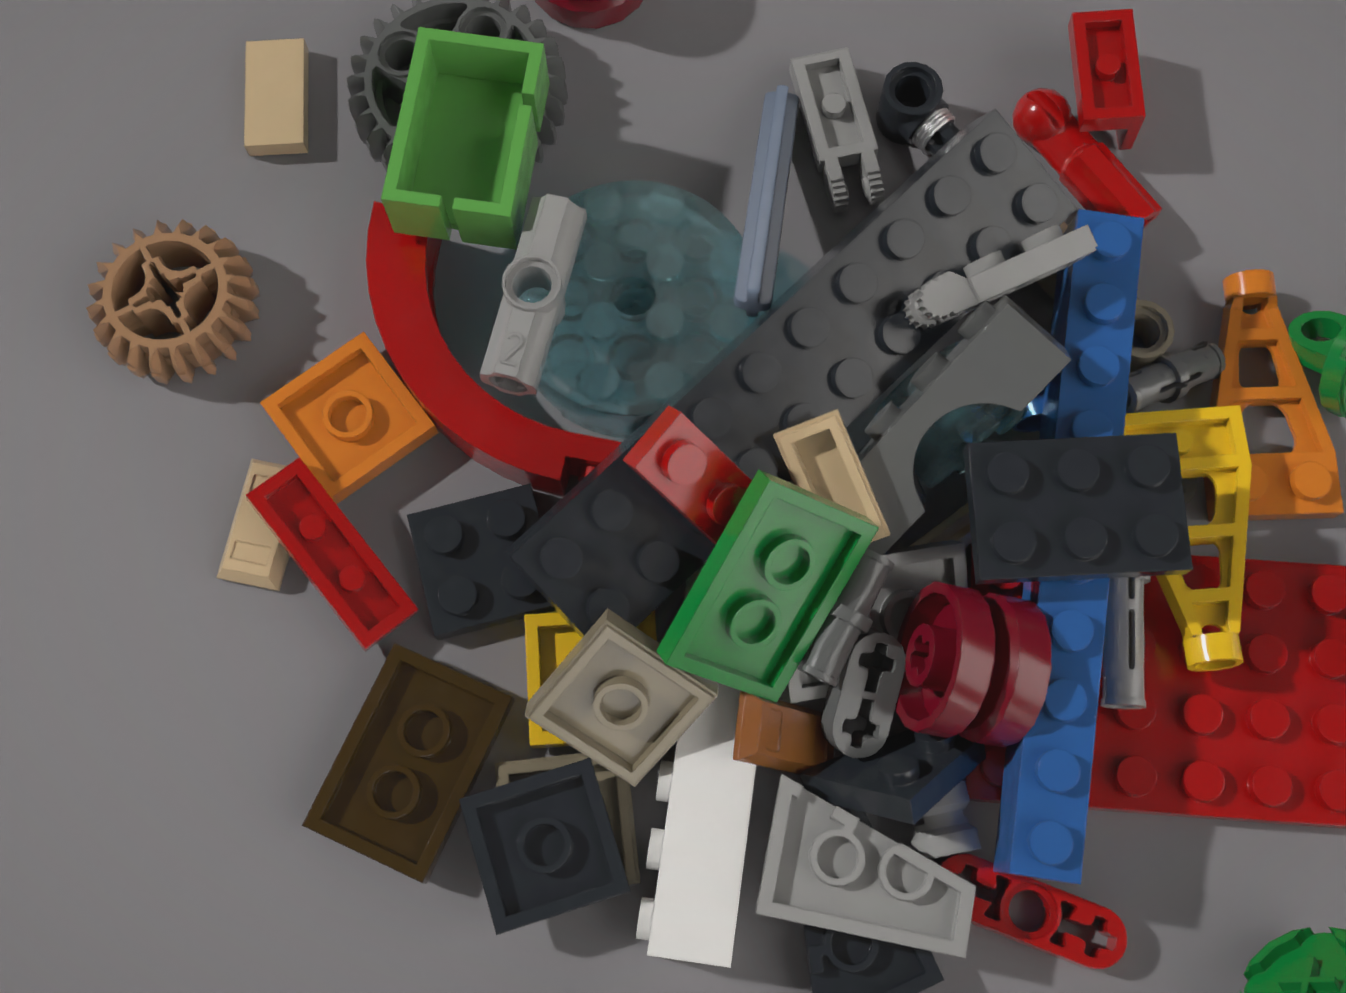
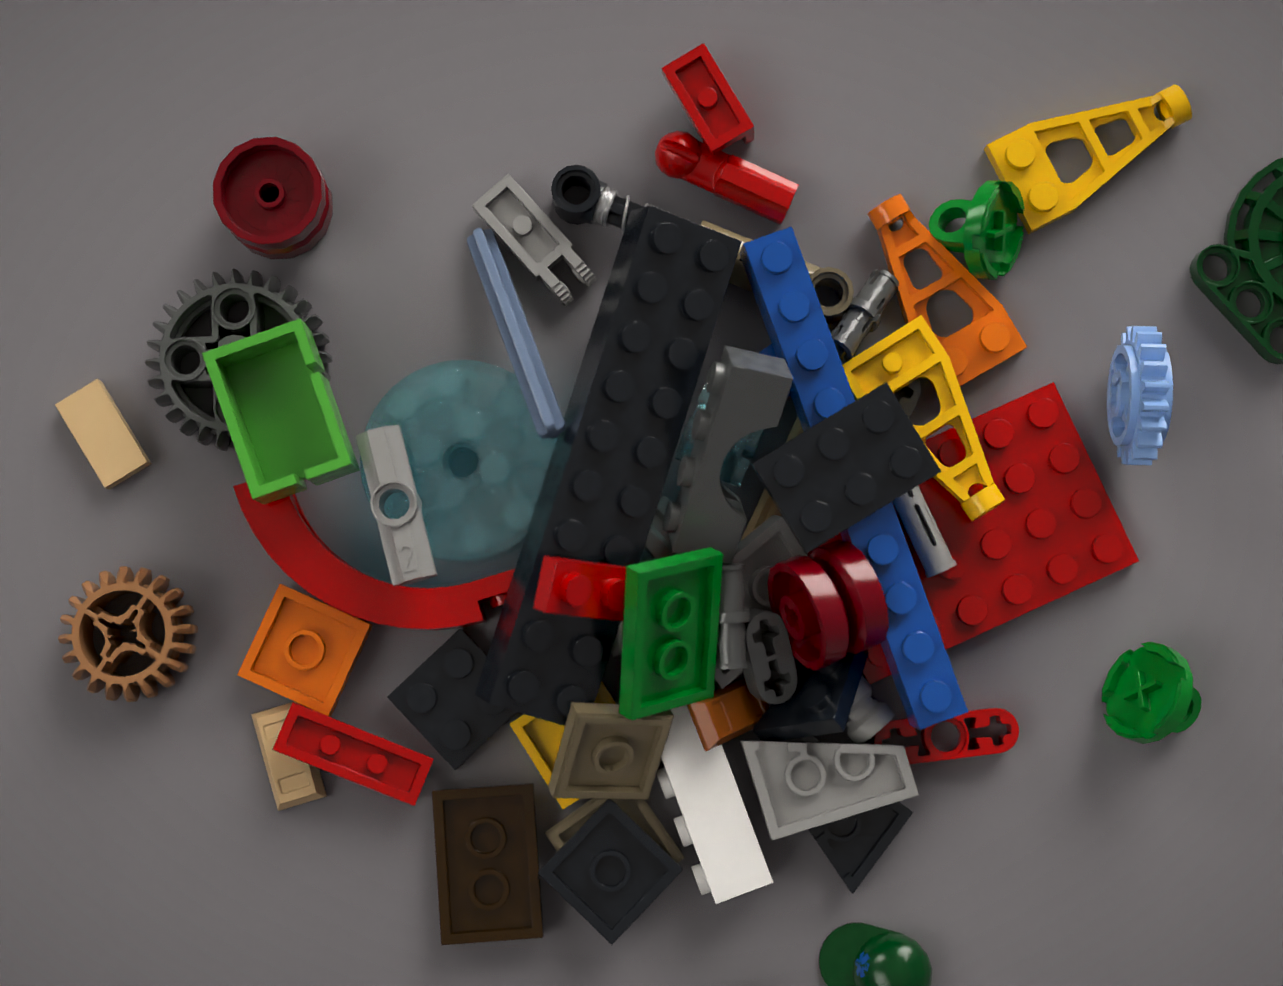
camera: 30 degrees left, 10 degrees up
(826, 464) = (669, 529): tan tile -> none
(993, 277) = (713, 334): light grey hinge -> none

